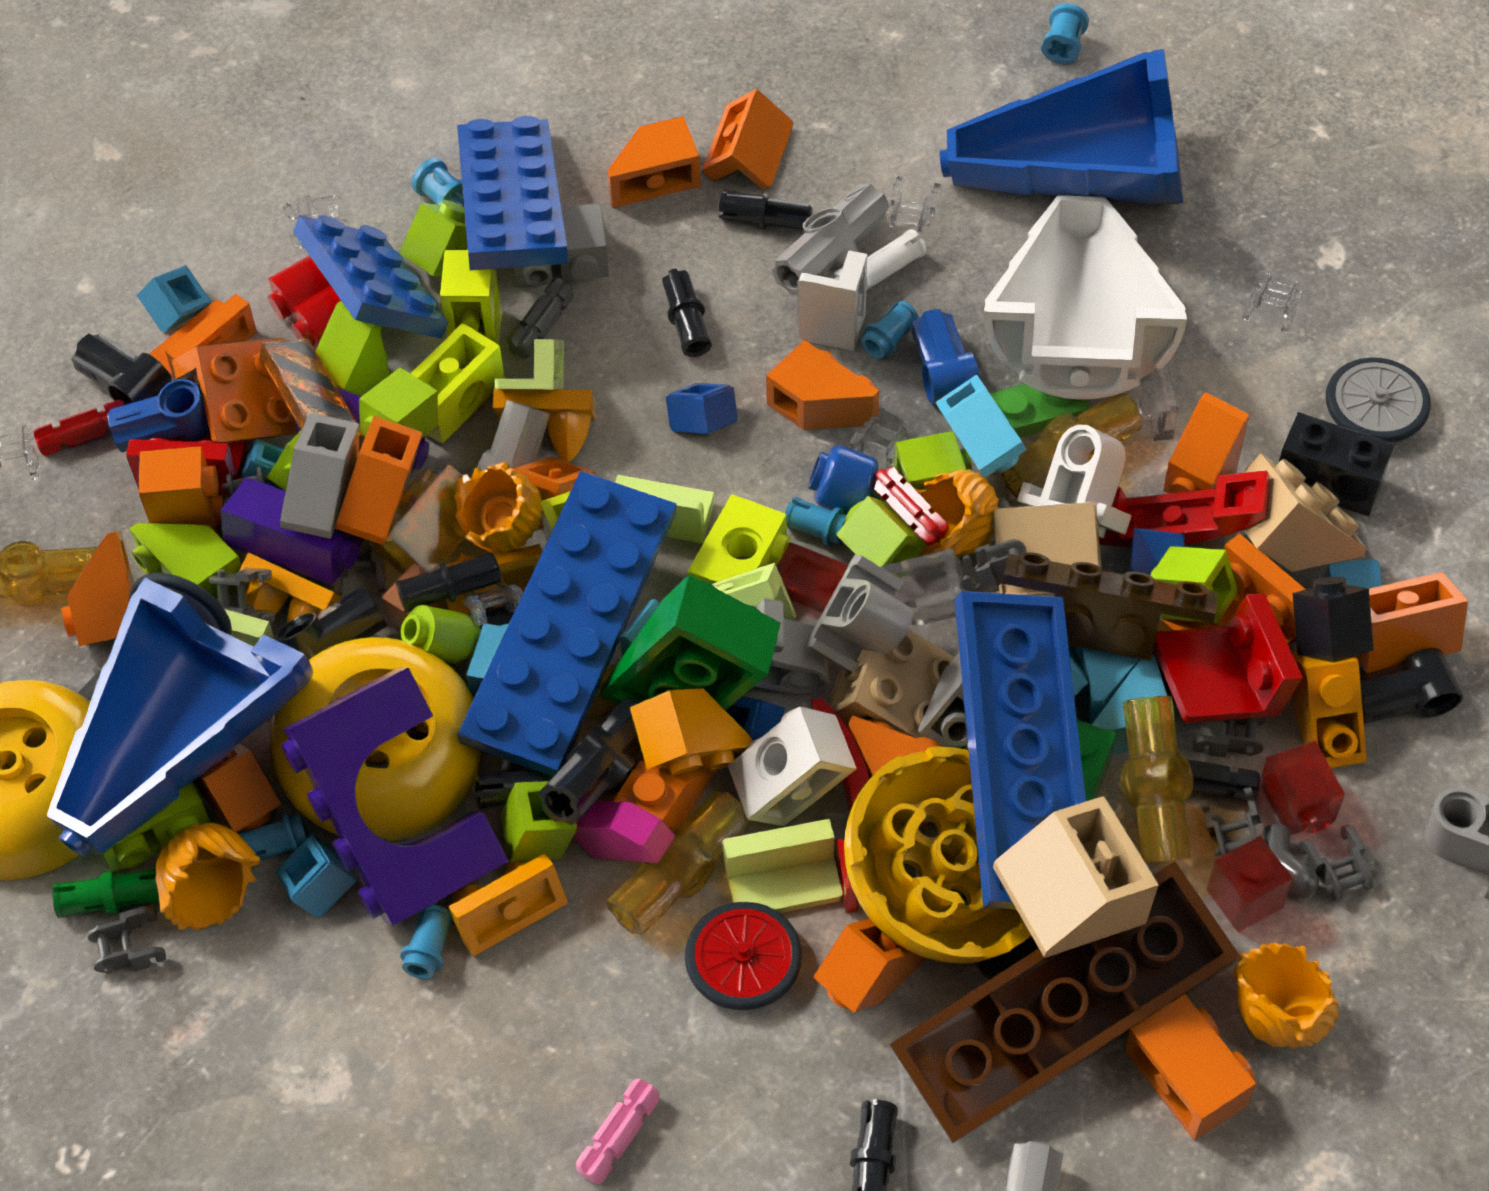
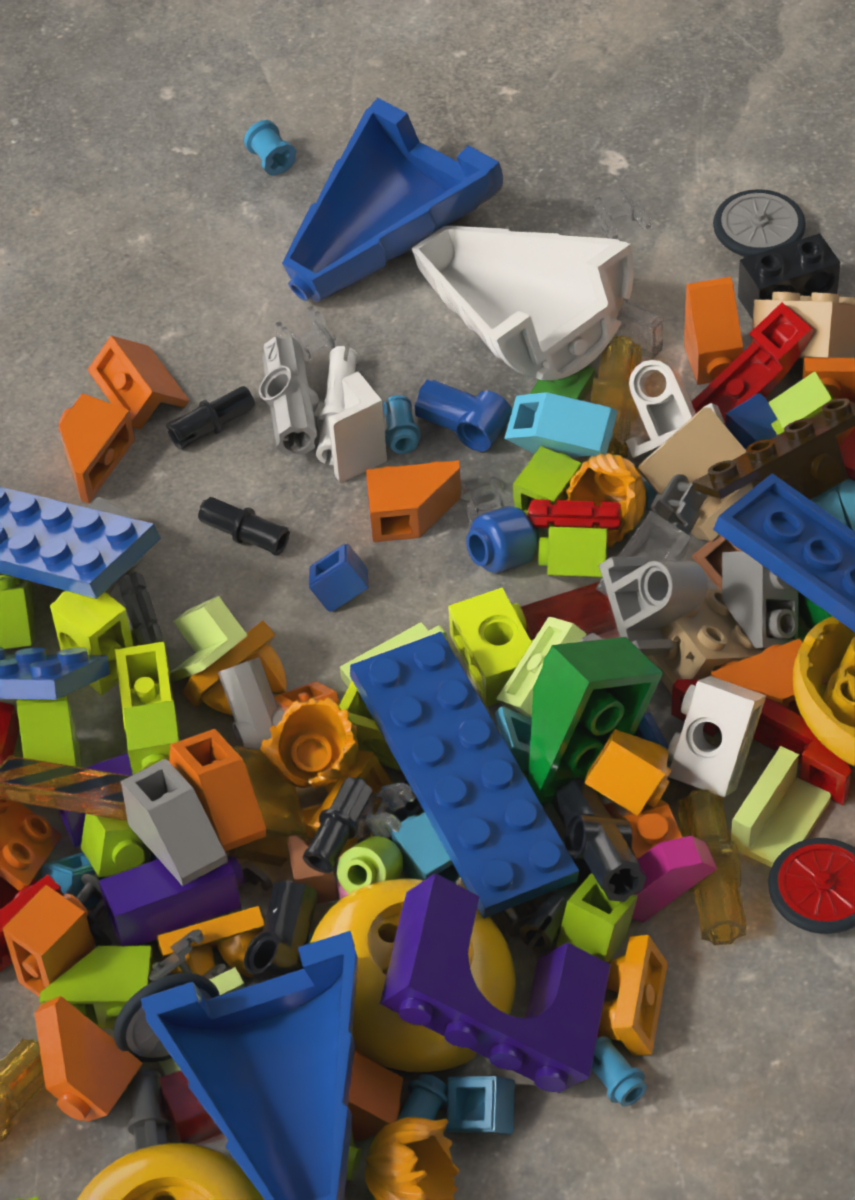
camera: 45 degrees left, 5 degrees down
(815, 520) = (517, 579): dark azure pin -> none

